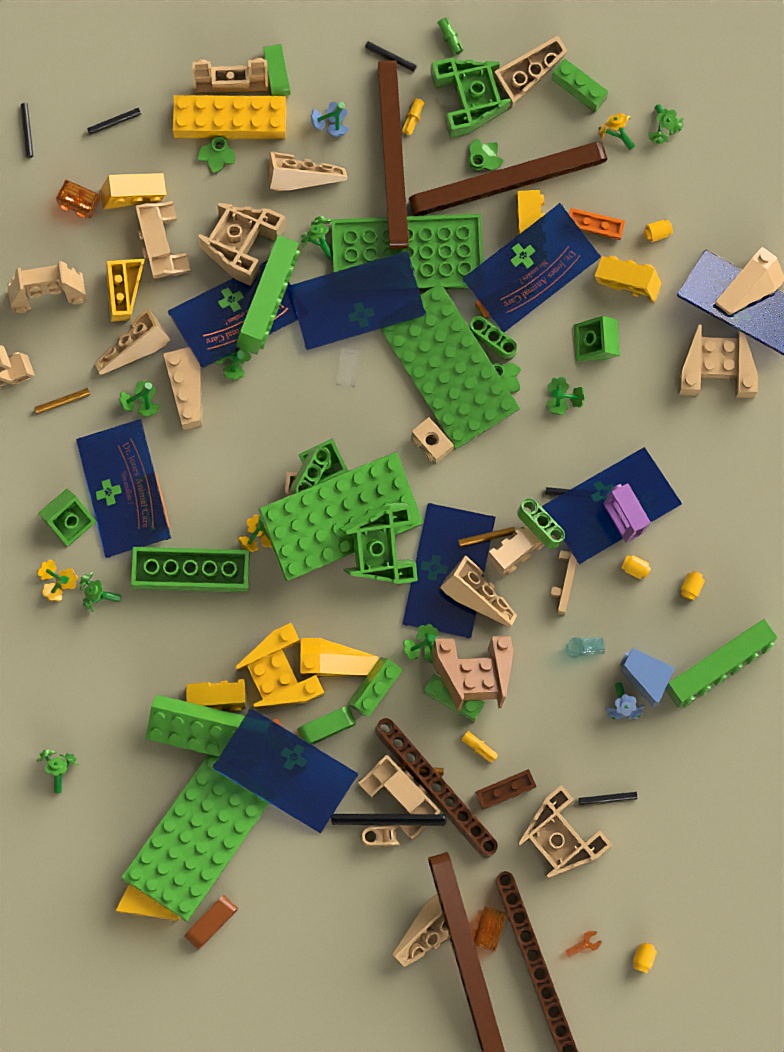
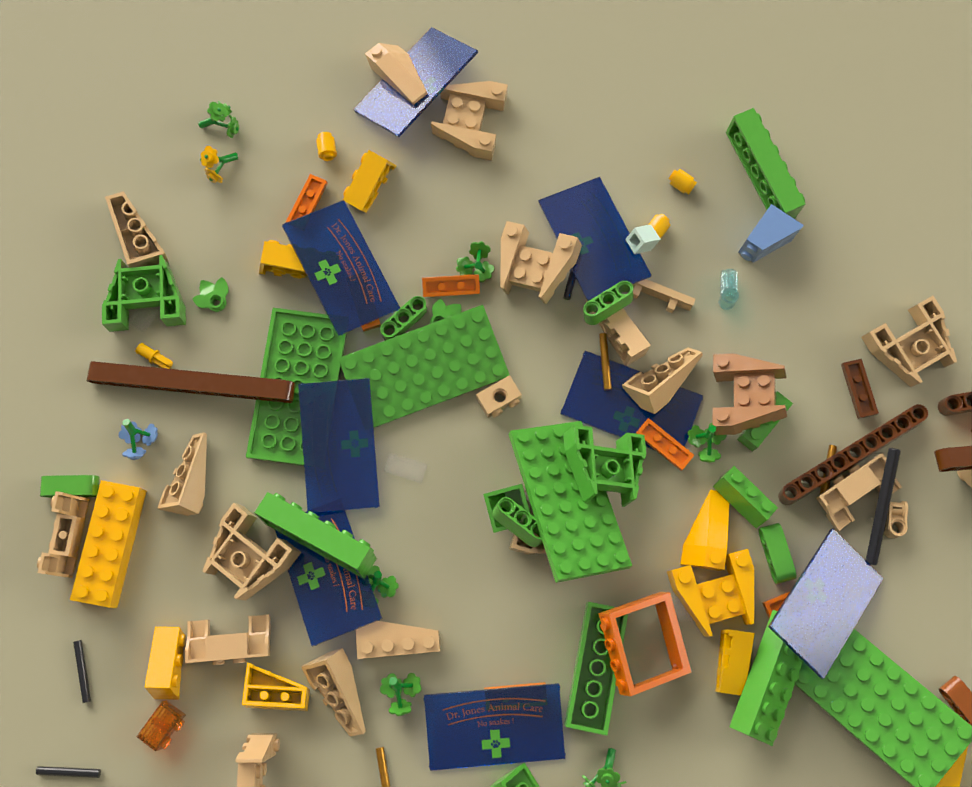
camera: 80 degrees left, 0 degrees up
(217, 157) = (149, 565): bright green plate -> none
(234, 633) = (672, 638): none -> orange window
(255, 526) = (559, 589): yellow plant -> none
(316, 232) = (260, 473): bright green plant -> none
(391, 56) = (83, 368): black bar -> none
(413, 604) = (665, 444): none -> orange plate
(450, 36) = (77, 304): bright green pin -> none
(479, 747) = (814, 406): yellow axle -> none
(508, 179) = (242, 278): reddish brown beam -> none
(536, 376) = (450, 285): none -> orange plate
(568, 449) = (534, 267): none -> tan wedge
(579, 85) = (161, 189): bright green brick -> none
(597, 339) = (424, 222): bright green slope -> none
(607, 798) = (876, 296): black bar -> none
(616, 550) = (642, 239): none -> light aqua brick
(624, 705) = (798, 258): medium blue plant -> none
(626, 512) = (610, 220): medium lavender window -> none

